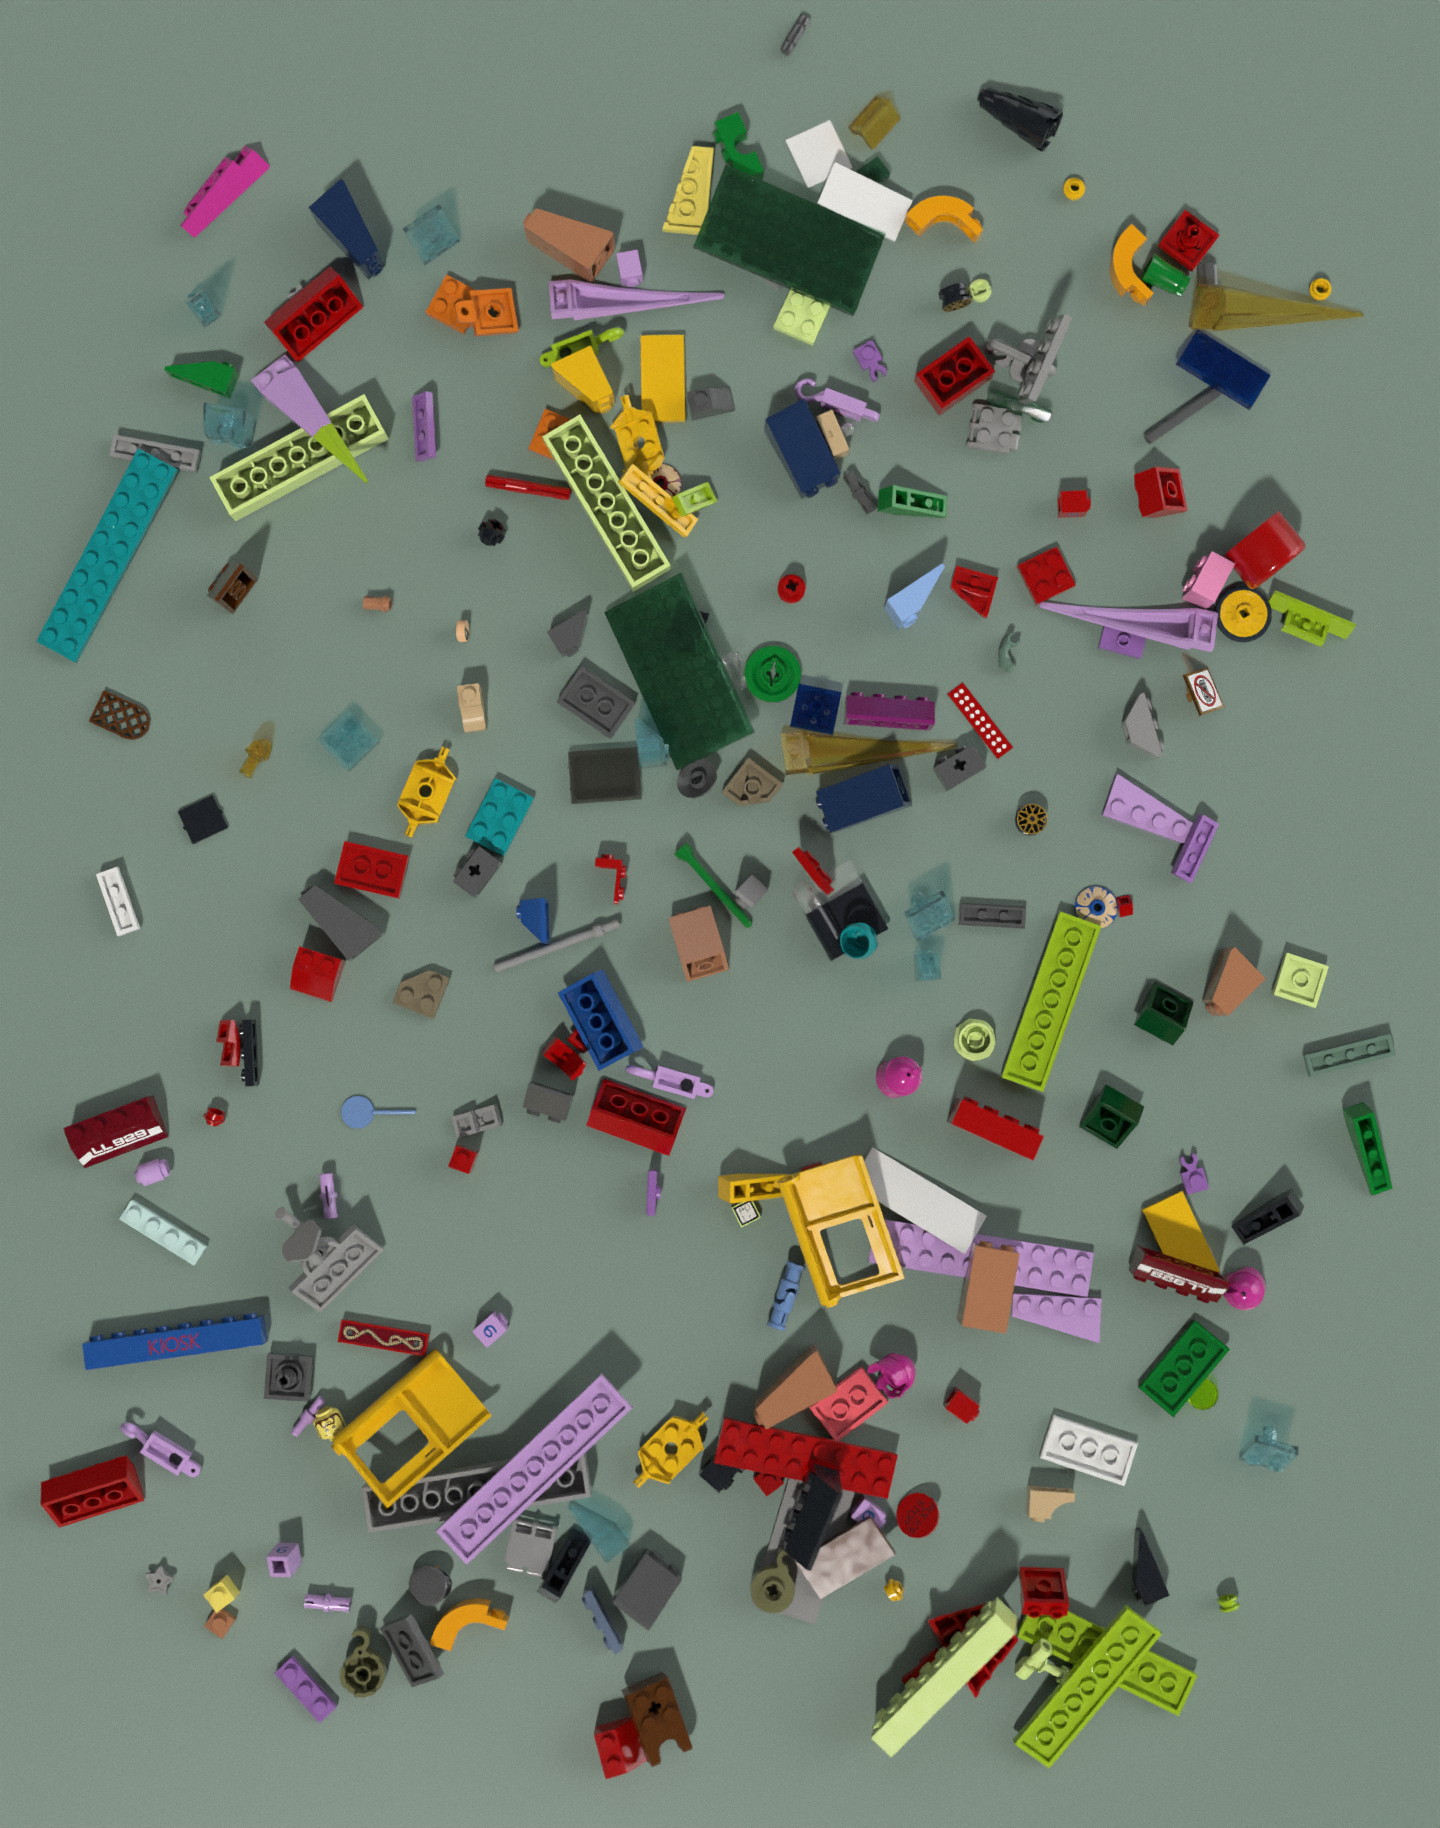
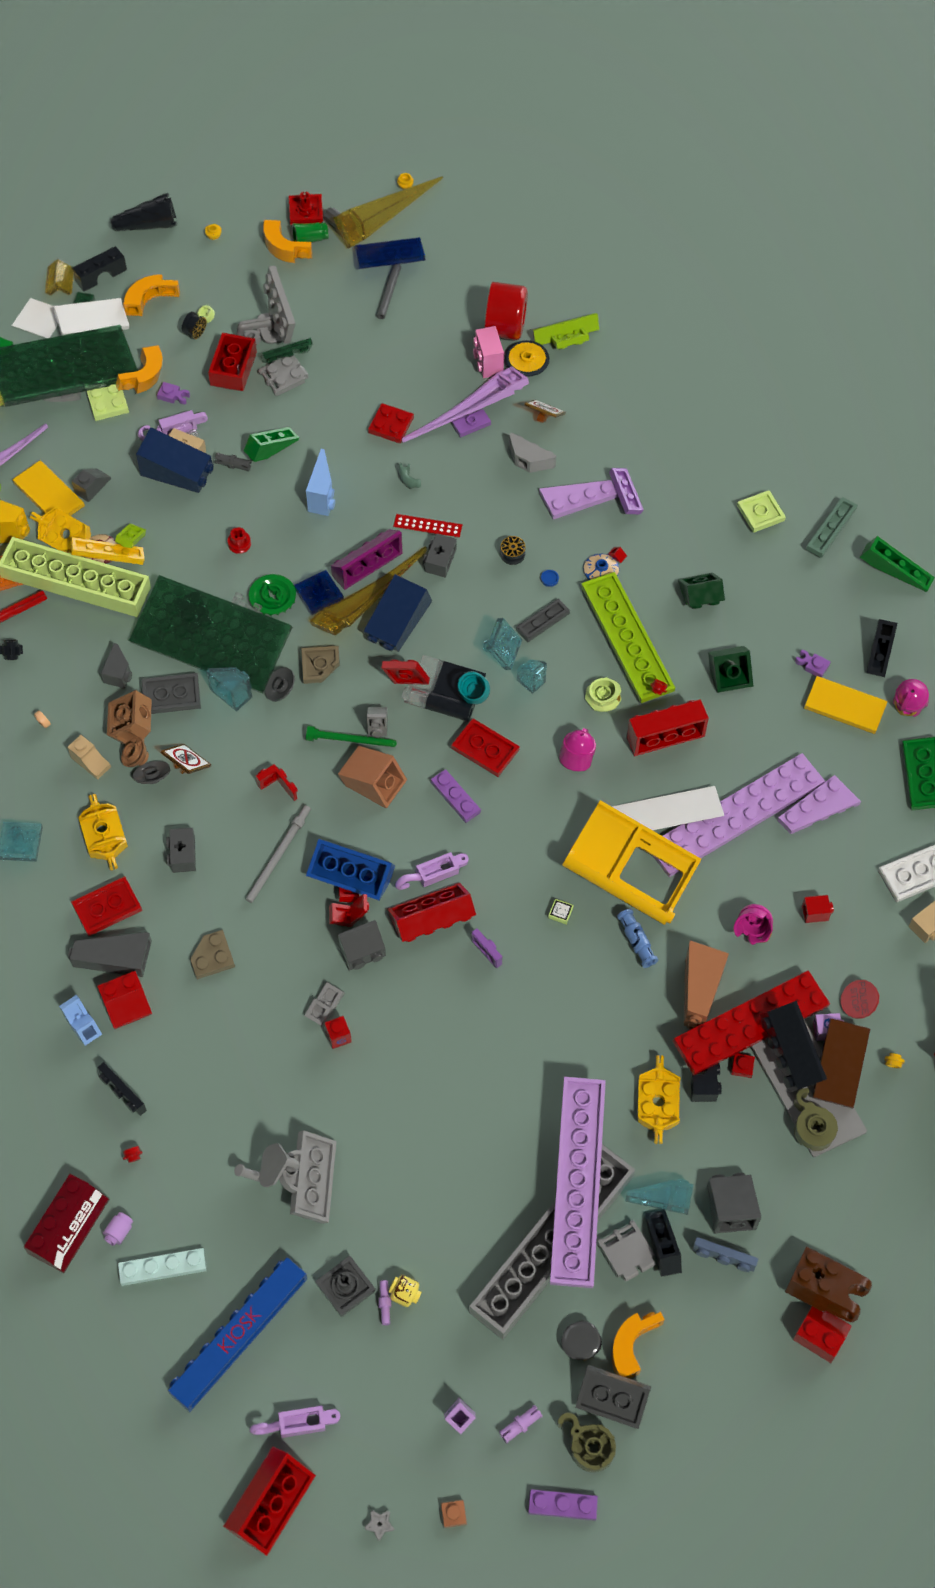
camera: 40 degrees left, 25 degrees down
(221, 1593) = (435, 1486): light yellow brick -> none
(229, 1036) = (100, 1092): red slope -> none
(264, 963) = (80, 1020): none -> light blue brick
(328, 1195) = (262, 1137): lavender pin -> none
(359, 1112) = (237, 1068): medium blue piece -> none
(383, 1337) = (389, 1201): tile -> none
(439, 1407) = (471, 1209): yellow piece -> none
(491, 1328) = (460, 1127): lavender brick -> none
(499, 817) = (167, 807): teal plate -> none
(515, 765) = (151, 772): none -> dark grey dish
(531, 708) = (129, 724): none -> medium nougat brick
(535, 917) = (249, 843): blue slope -> none
(551, 784) = (185, 758): none -> piece
(604, 775) = (216, 731): clear smoke piece -> none
(748, 1187) = (548, 890): yellow slope -> none
(755, 1023) = (455, 796): none -> medium lavender plate
(822, 1001) = (485, 747): none -> red plate
(850, 1406) = (745, 971): coral tile -> none
(879, 308) = (146, 377): none -> light orange arch
(911, 140) = (89, 270): none -> black arch
(974, 589) = (354, 459): red wing -> none
(988, 1287) = (759, 819): nougat slope -> none
(1026, 1082) = (658, 686): none -> red plate
(1039, 876) = (549, 578): none -> blue piece
(1073, 503) = (369, 375): red brick -> none
(1160, 492) = (414, 334): red slope -> none
(1178, 1274) = (864, 716): dark red slope -> none
(1230, 982) = (721, 538): nougat slope -> none

